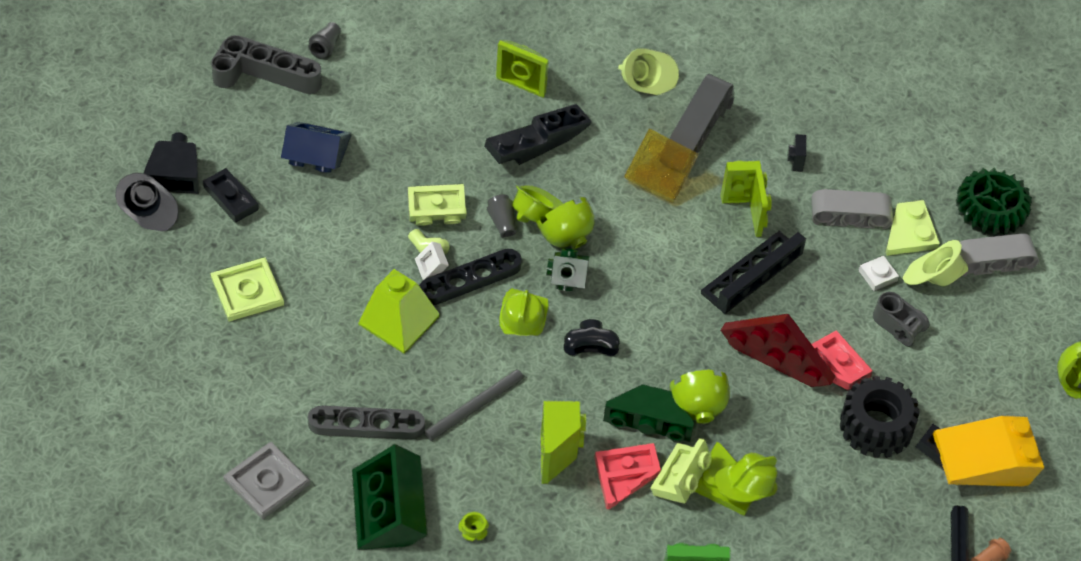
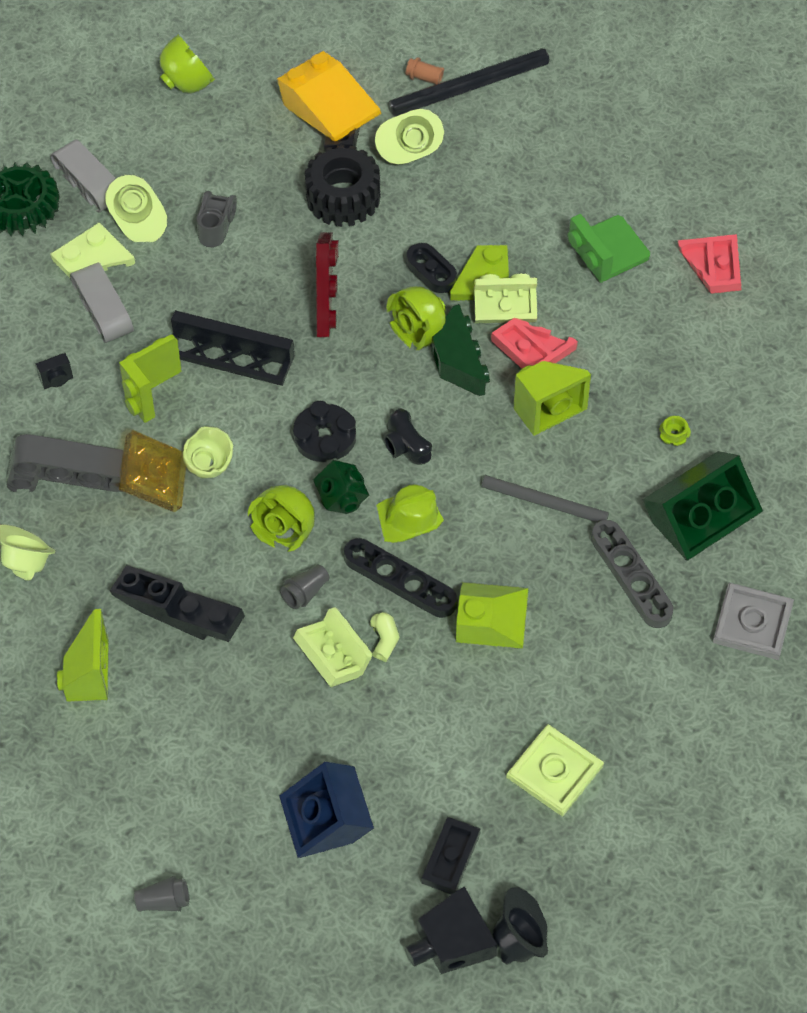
camera: 115 degrees left, 5 degrees up
(265, 62) = (244, 926): dark grey beam -> none
(431, 260) = (410, 614): white plate -> none
(533, 203) = (273, 556): lime piece -> none
(639, 281) = (321, 416): none -> black plate
(661, 204) = (206, 445): none -> yellowish green hair
(748, 479) = (478, 250): lime piece -> none
(752, 441) = (433, 269): none -> black plate
(842, 360) = (295, 246): coral wing -> none
(878, 273) = (165, 257): white plate -> none
(906, 489) = (409, 136): none -> yellowish green piece

